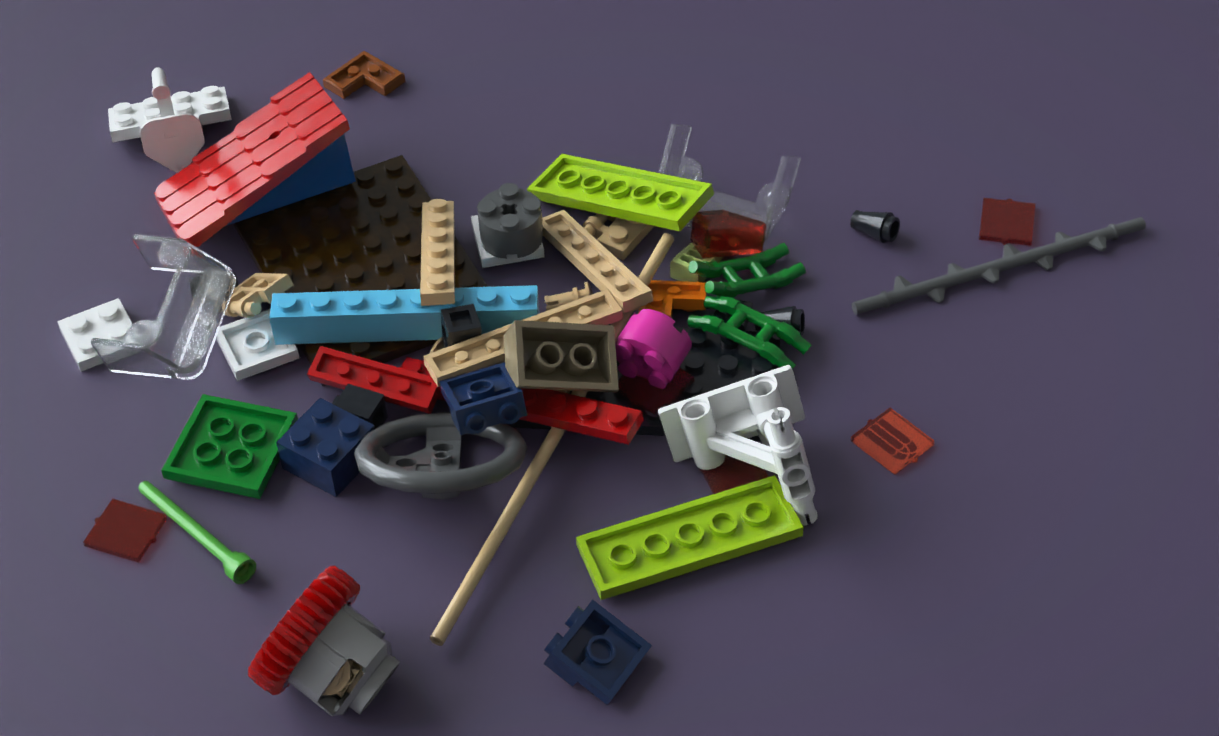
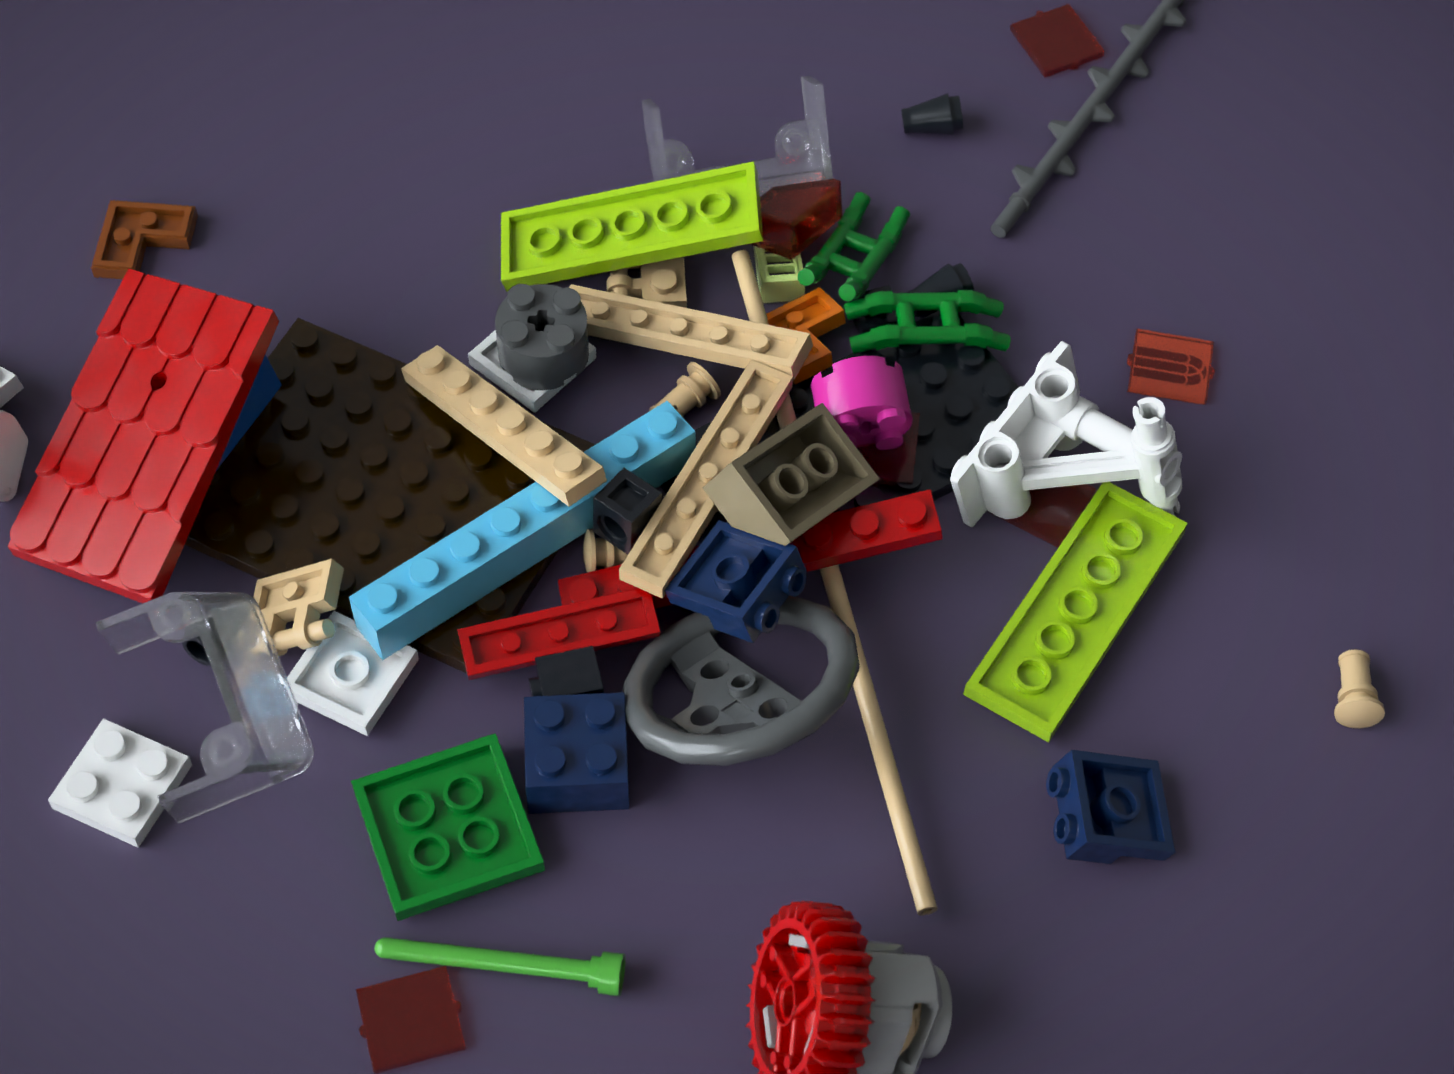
camera: 40 degrees left, 10 degrees up
(816, 686) = (1357, 698): none -> tan pin

